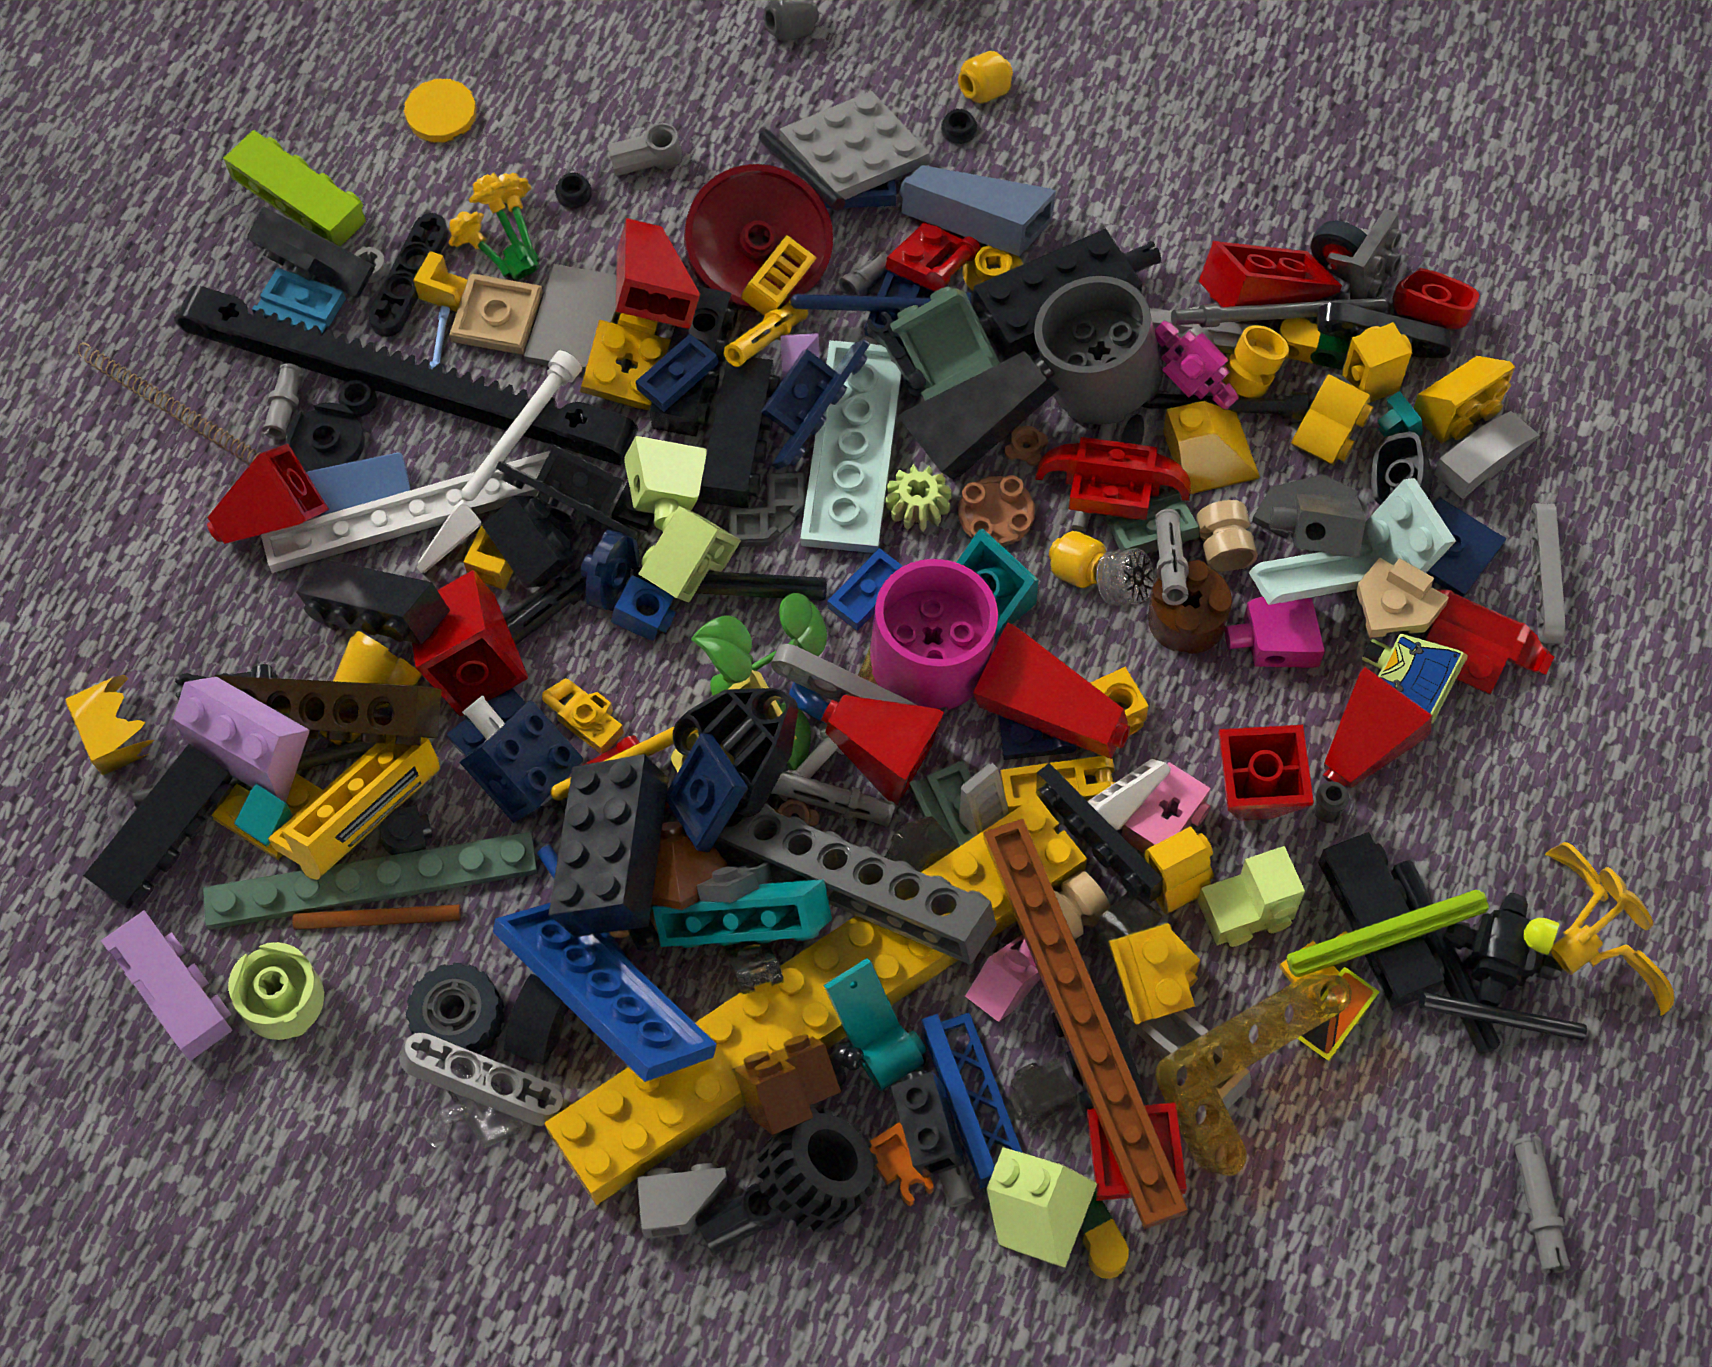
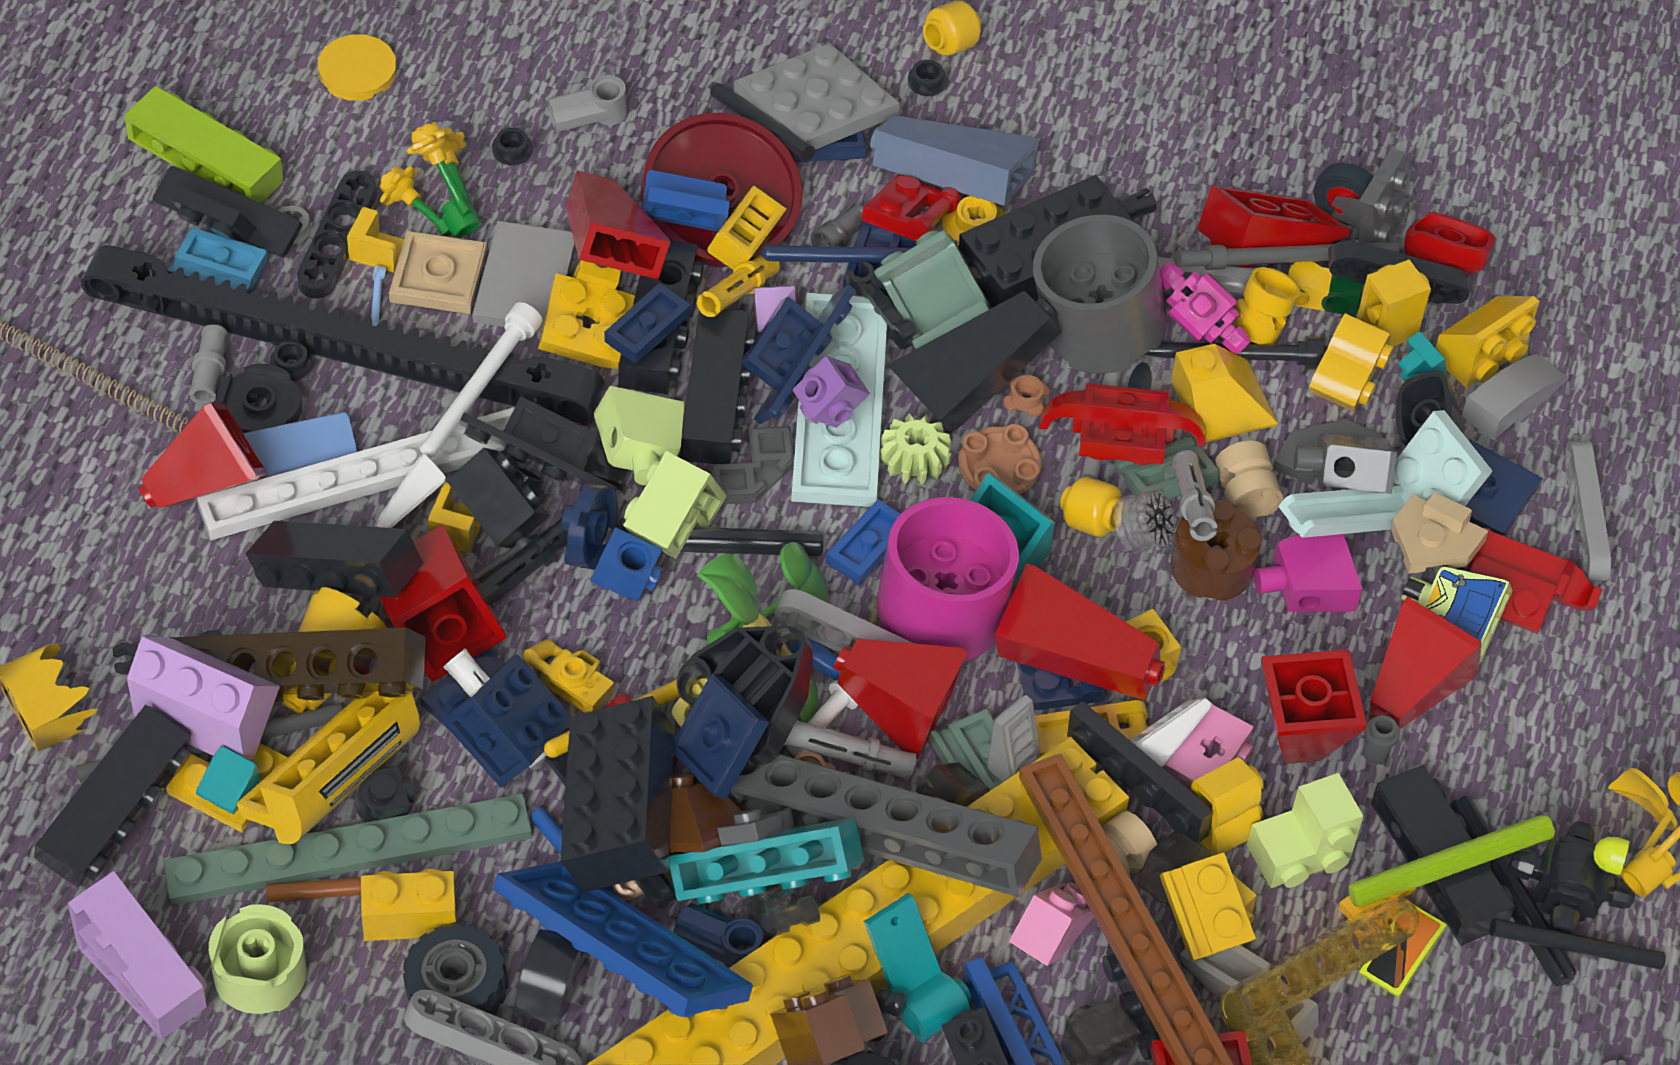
camera: 10 degrees left, 10 degrees down
(416, 940) = (406, 903): none -> yellow brick
(695, 978) = (717, 934): none -> dark blue piece
(721, 249) = (685, 200): none -> blue panel
(840, 444) = (830, 392): none -> medium lavender brick

